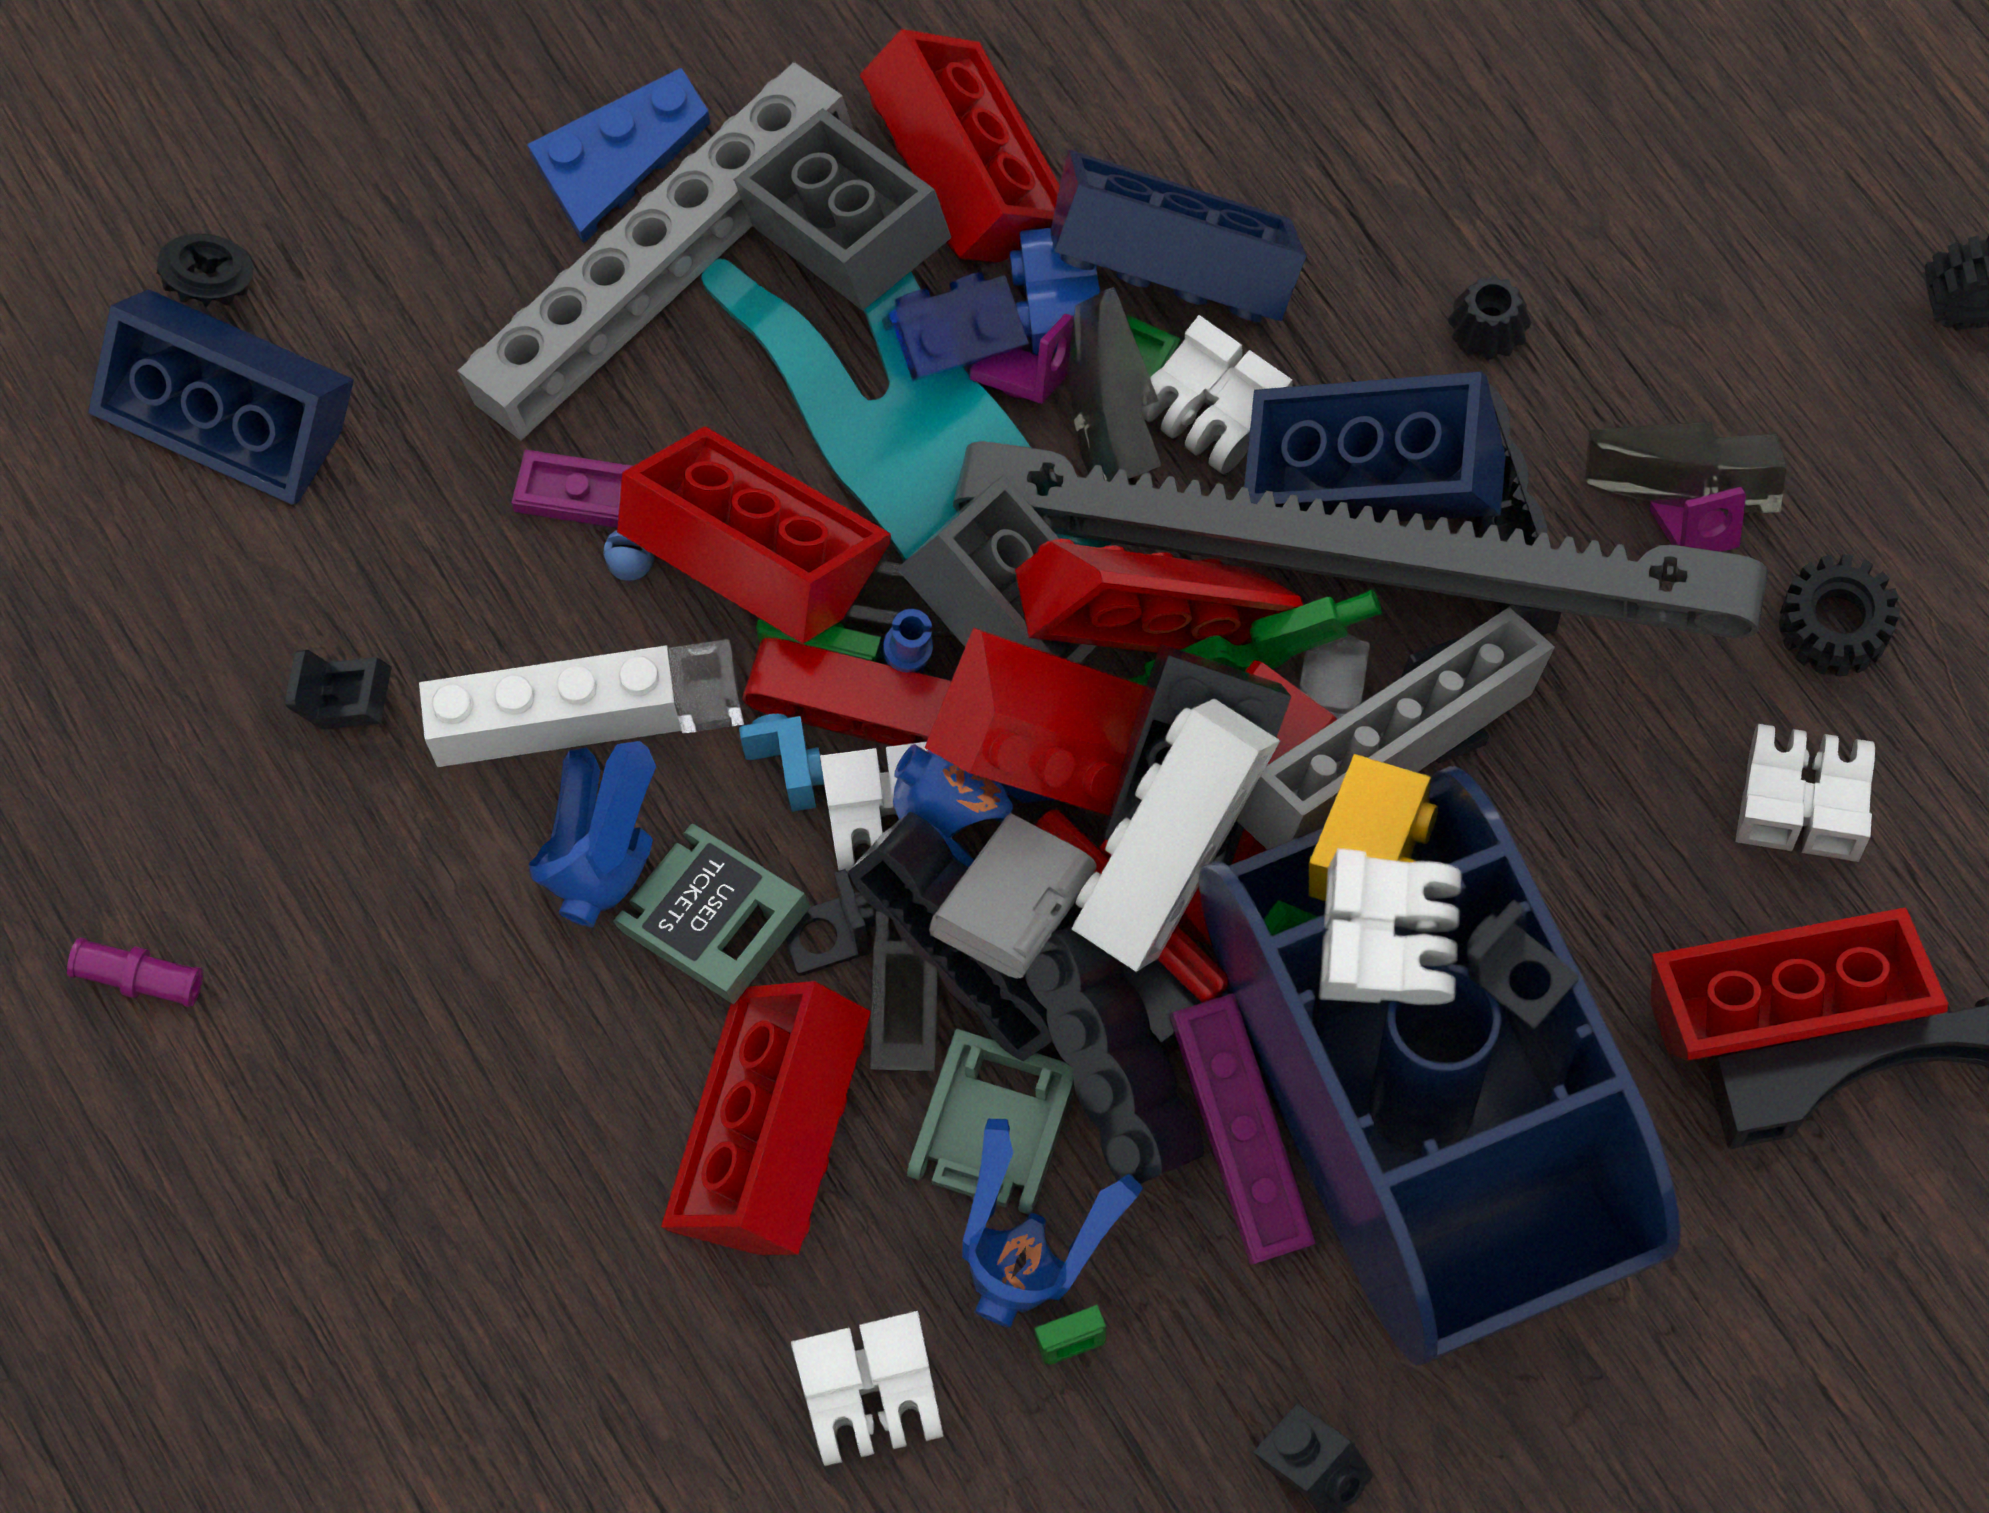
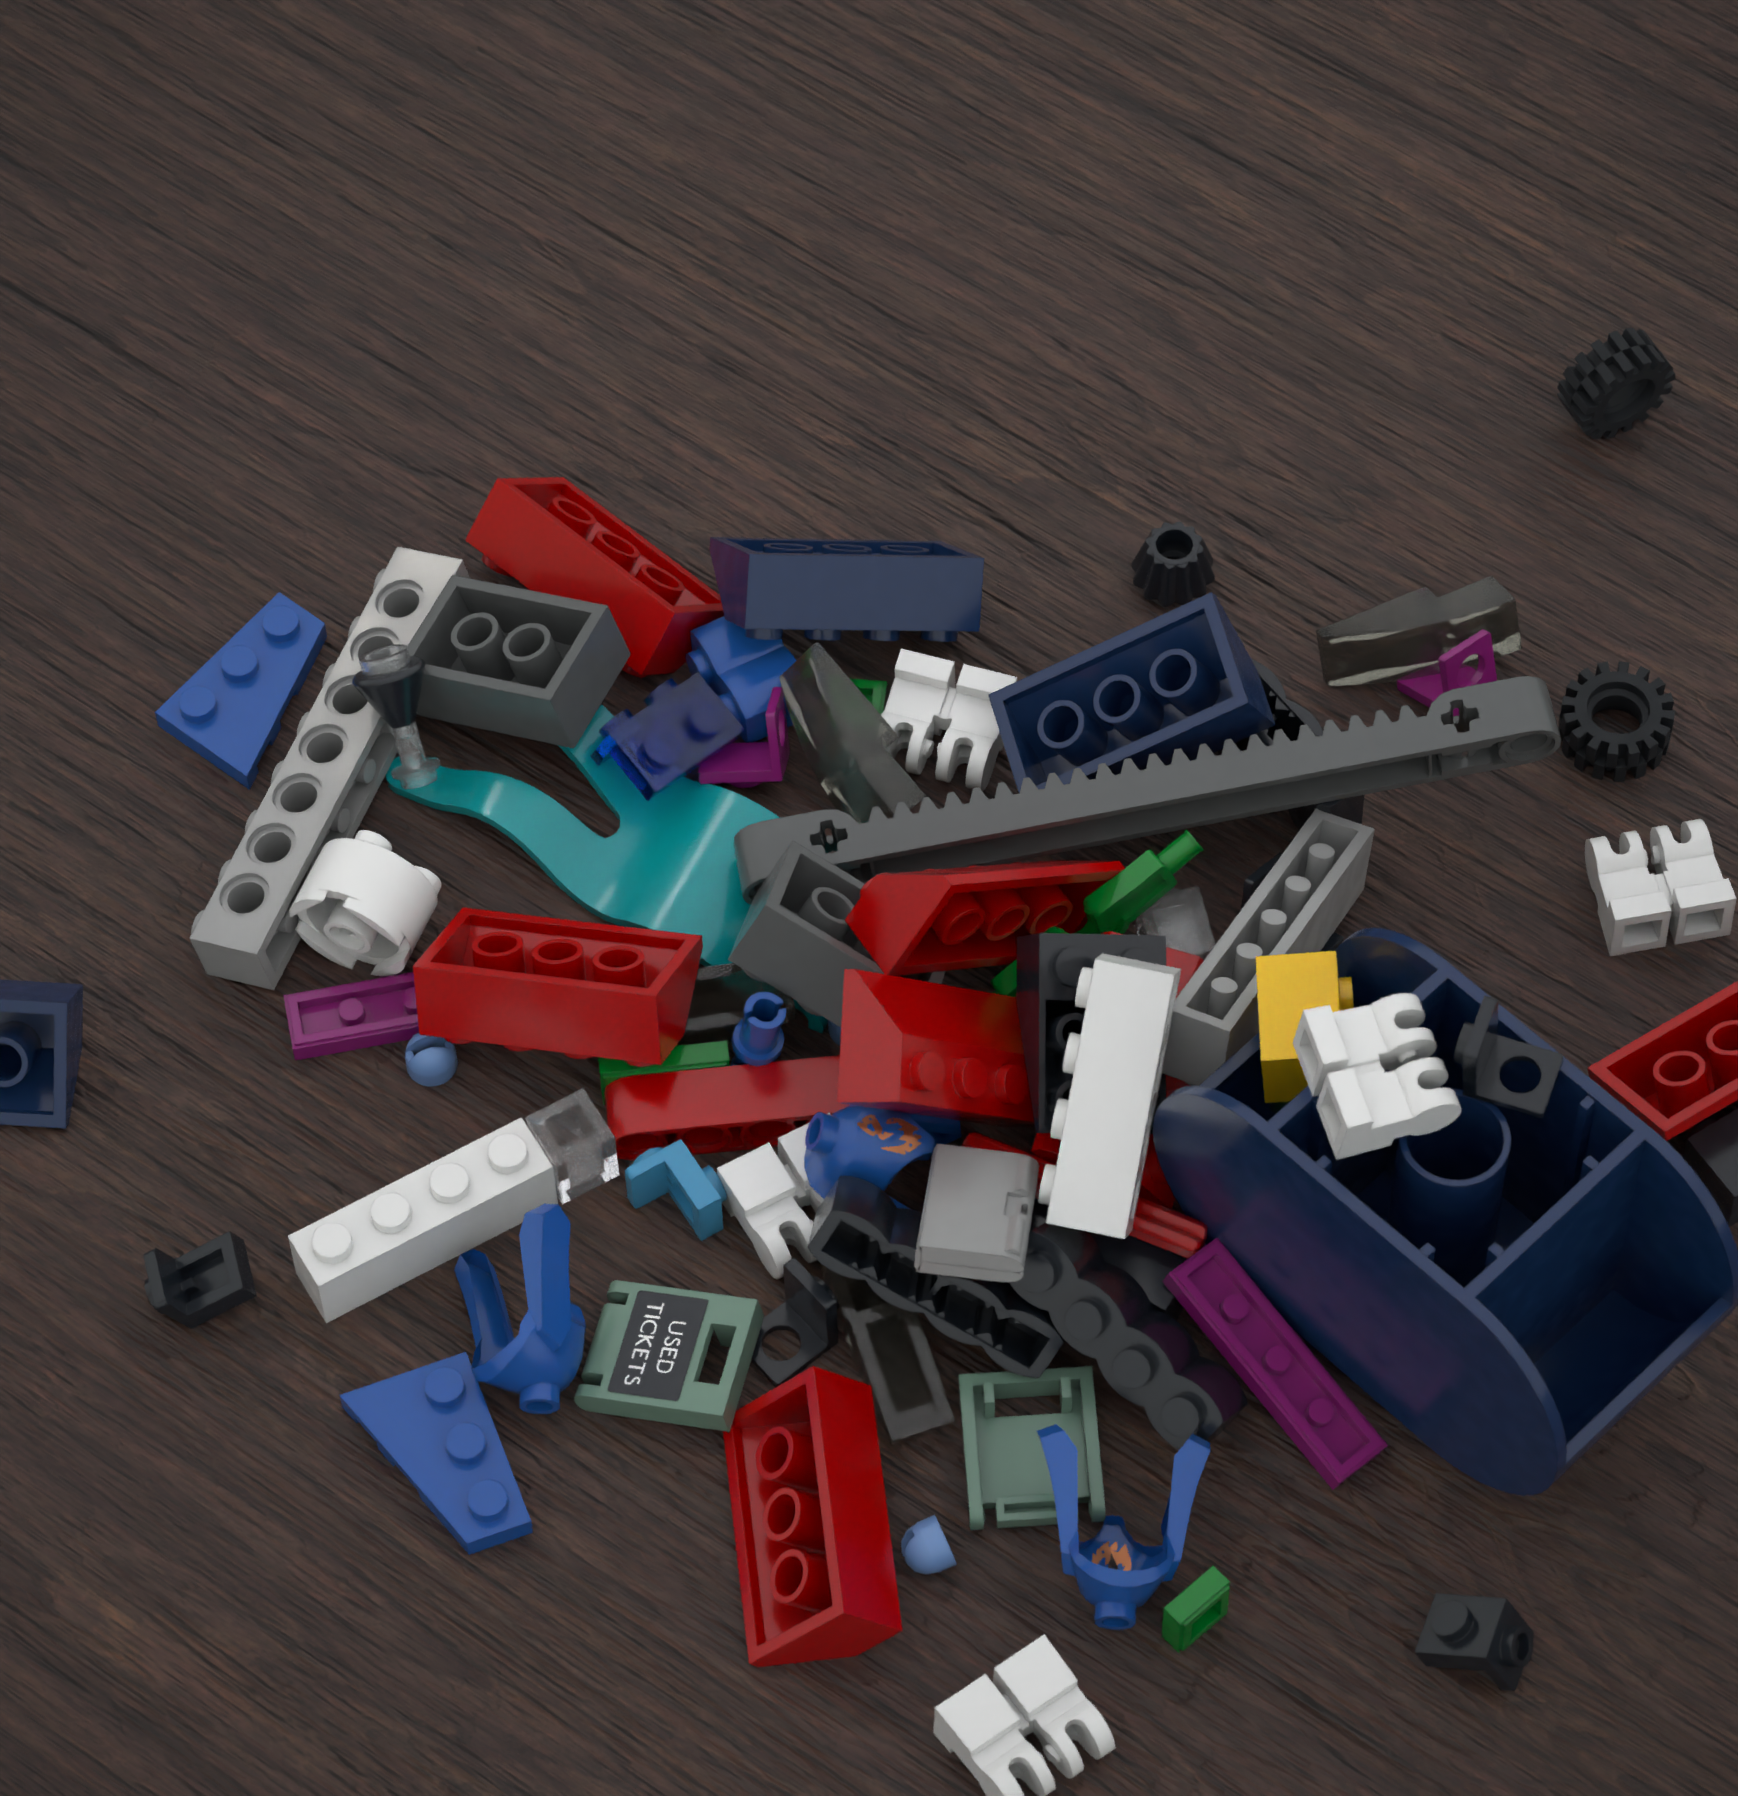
camera: 25 degrees left, 10 degrees down
(135, 972) = (109, 1617): magenta pin -> none
(486, 926) = (447, 1447): none -> blue wing
(621, 392) = (365, 904): none -> white brick
(722, 197) = (393, 686): none -> piece
(861, 1180) = (926, 1547): none -> medium blue hinge

